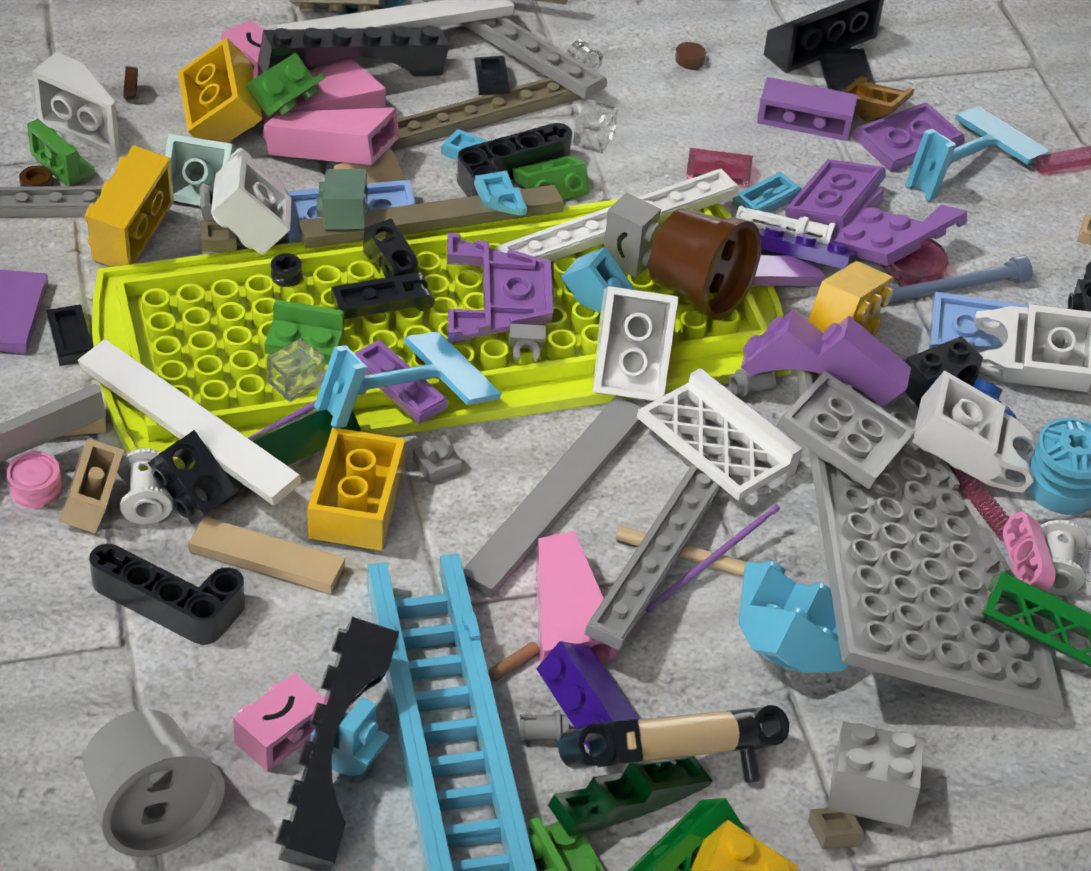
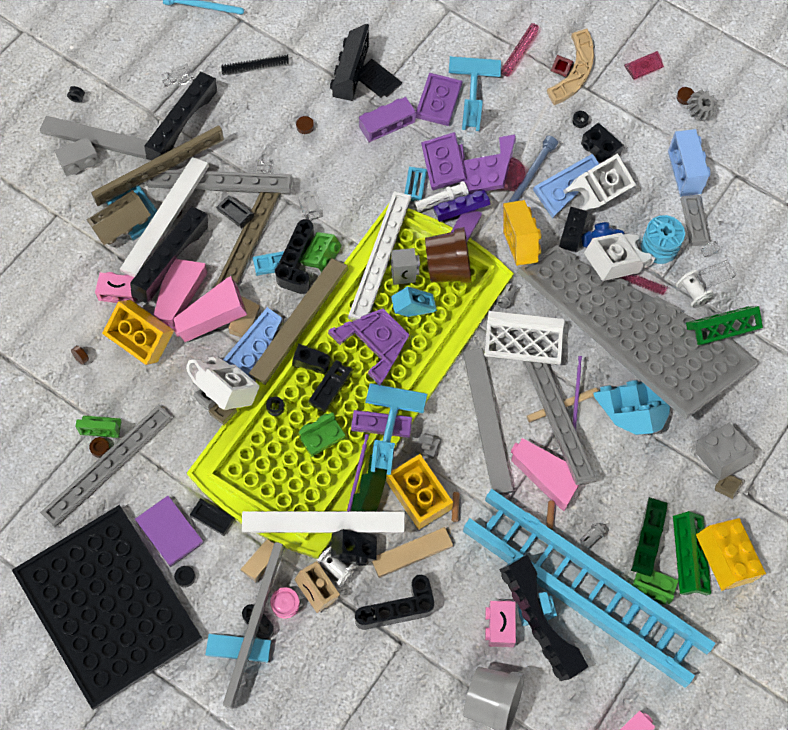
camera: 40 degrees left, 20 degrees up
(75, 103) = (76, 391): white slope -> none
(130, 207) = (174, 433): yellow brick -> none
(194, 163) = (172, 383): light aqua slope -> none
(283, 84) = (168, 304): bright green bracket -> none
(296, 369) = (339, 457): clear brick -> none
(343, 199) = (261, 347): sand green brick -> none
(393, 549) = (455, 509): none -> medium nougat piece
(498, 193) = (319, 286): medium azure slope -> none
(527, 336) = (411, 357): light grey tile -> none
(583, 686) = (602, 510): dark purple brick -> none
(634, 343) = (454, 321): white slope -> none
(677, 737) = (643, 525): piece -> none
(734, 165) = (381, 185): clear pink slope -> none
(842, 351) = (546, 260): medium lavender arch -> none
(845, 429) = (581, 300): light grey plate -> none
(876, 99) = (409, 86): pearl gold slope -> none
(1024, 535) = (695, 299): bright pink beam -> none

